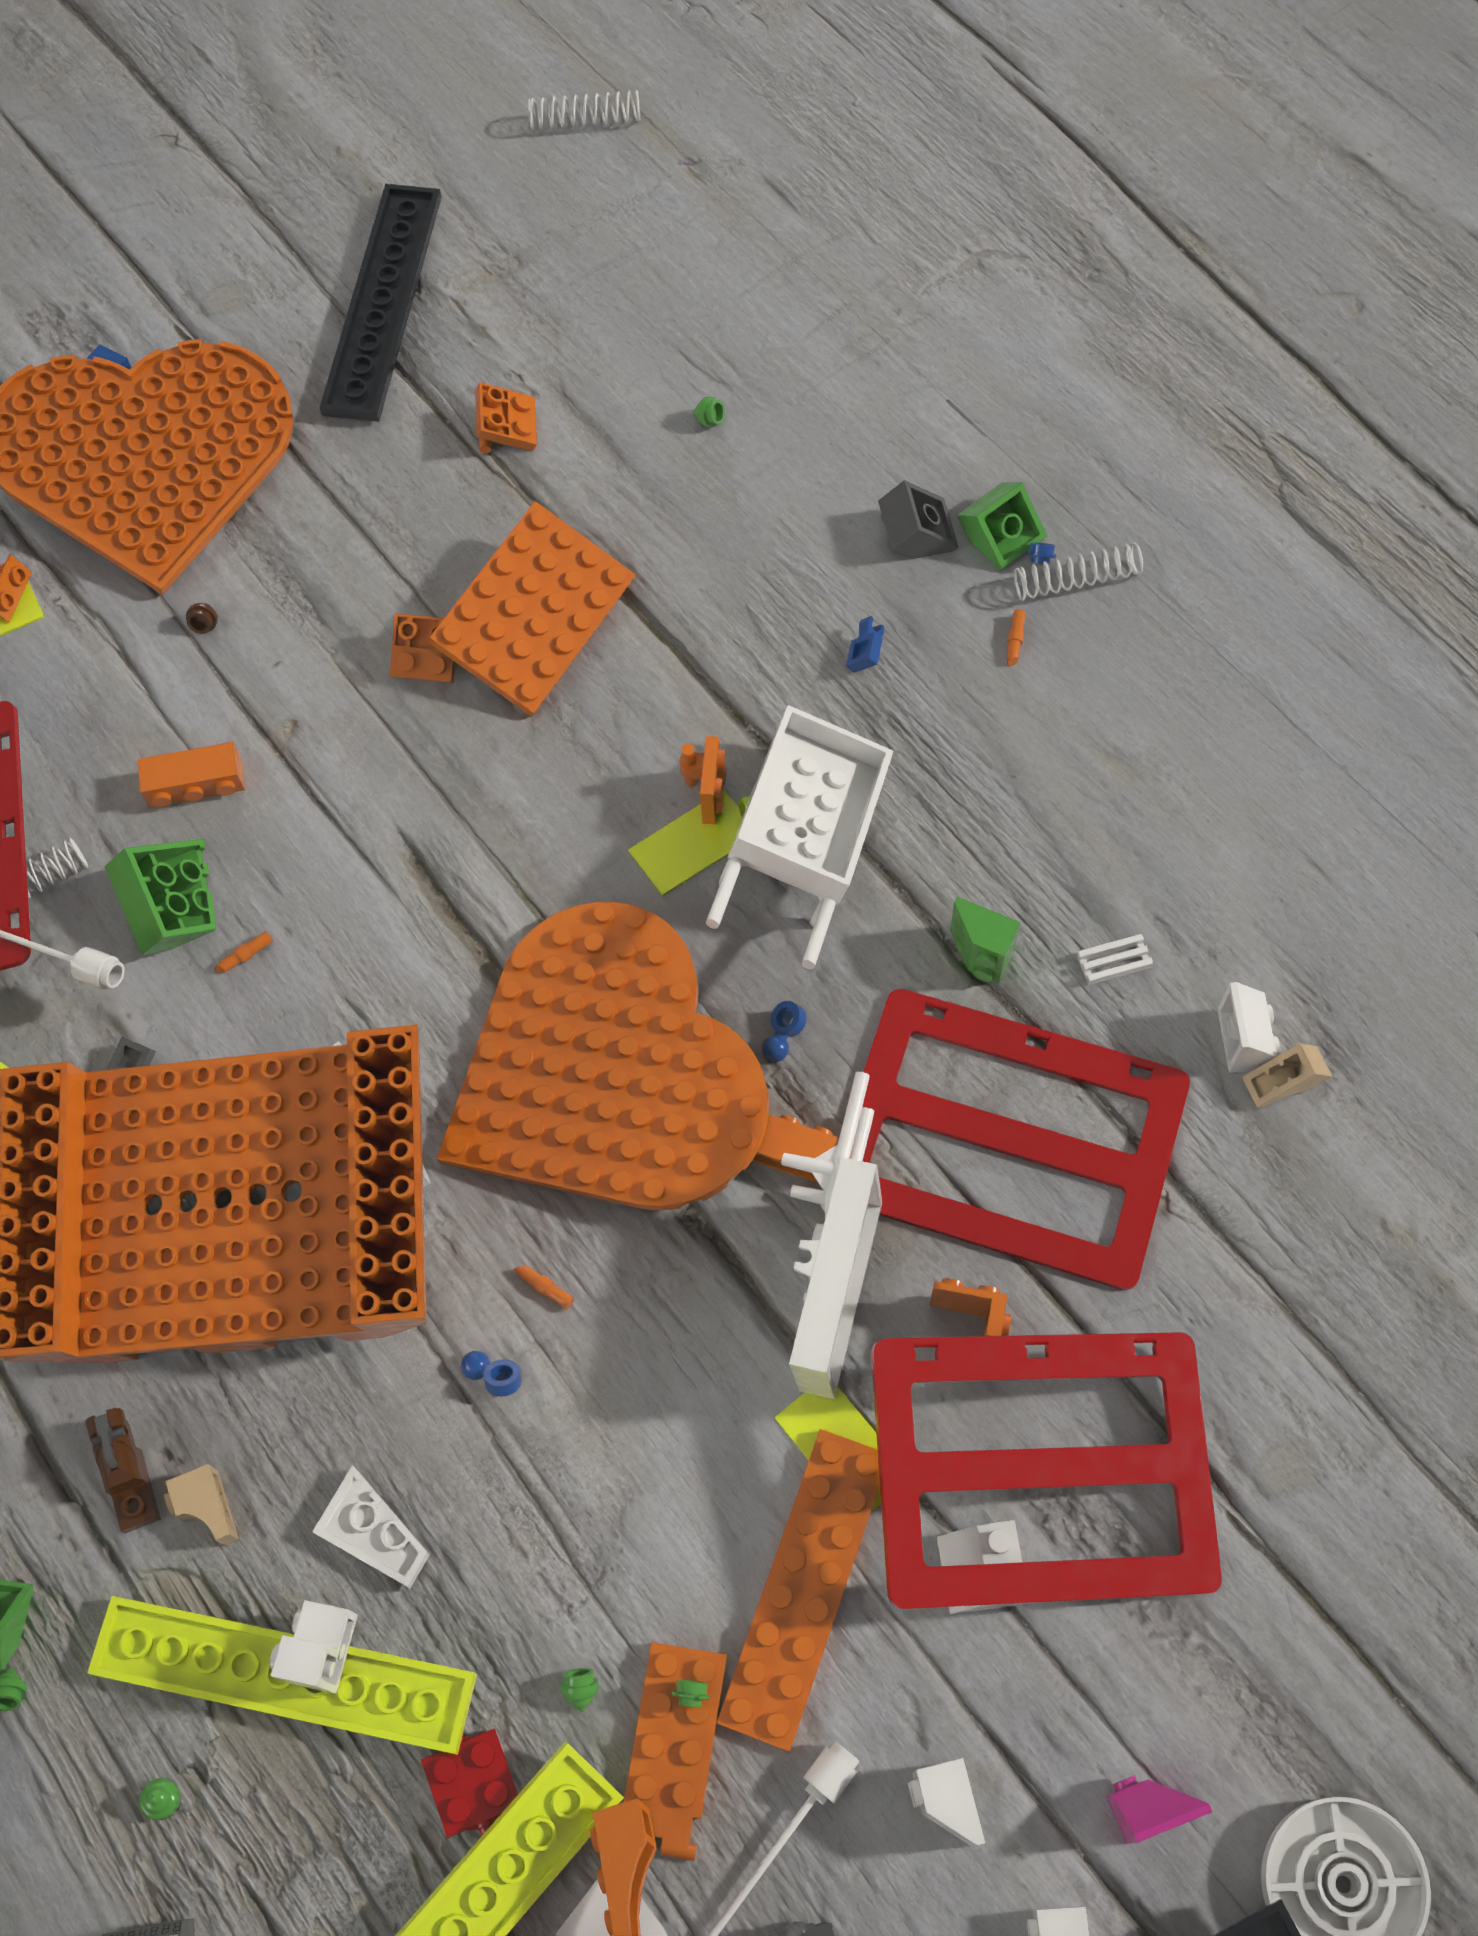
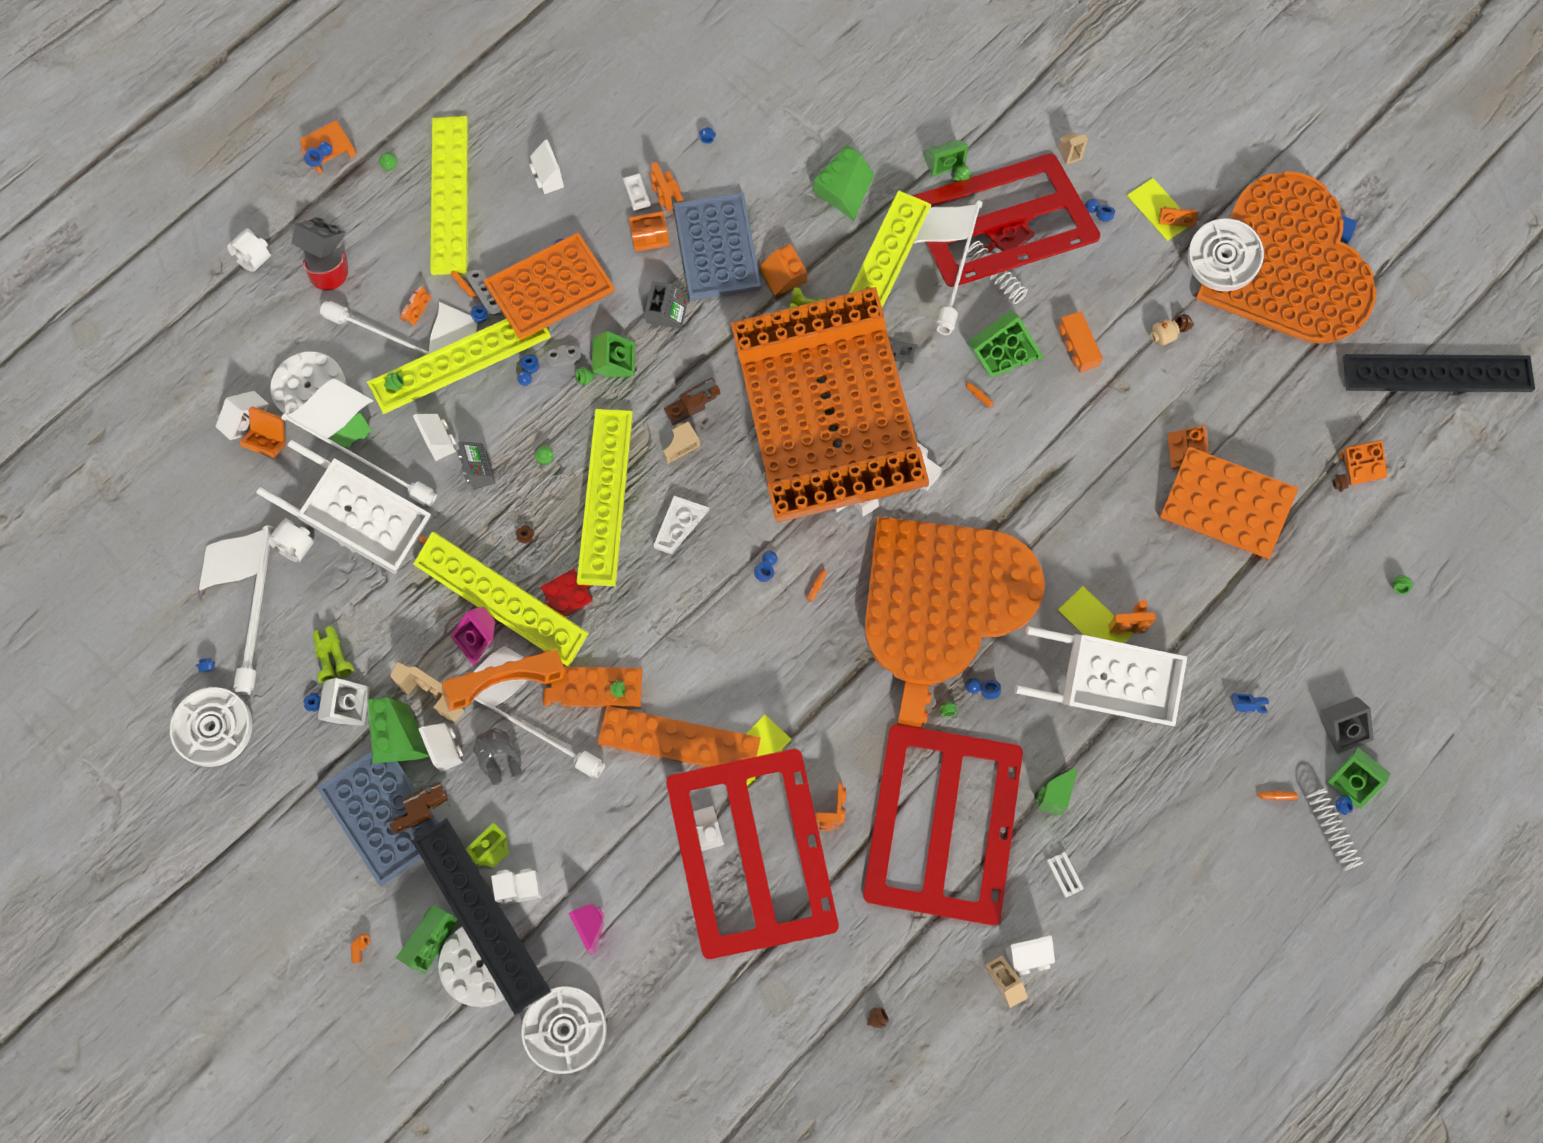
camera: 80 degrees right, 5 degrees up
(99, 499) = (1230, 238): none -> white piece
(211, 645) = (1165, 332): none -> tan head
(318, 1648) = (614, 507): white brick -> none
(334, 1858) = (528, 537): none -> reddish brown plate
(529, 457) = (1340, 482): none -> reddish brown plate
(579, 1687) = (616, 636): bright green plate -> none
(811, 1094) = (948, 709): none -> bright green plate
(838, 1247) = (850, 730): white piece -> none
(948, 1799) = (580, 821): white slope -> none
(1339, 1294) = (877, 1018): none -> reddish brown plate

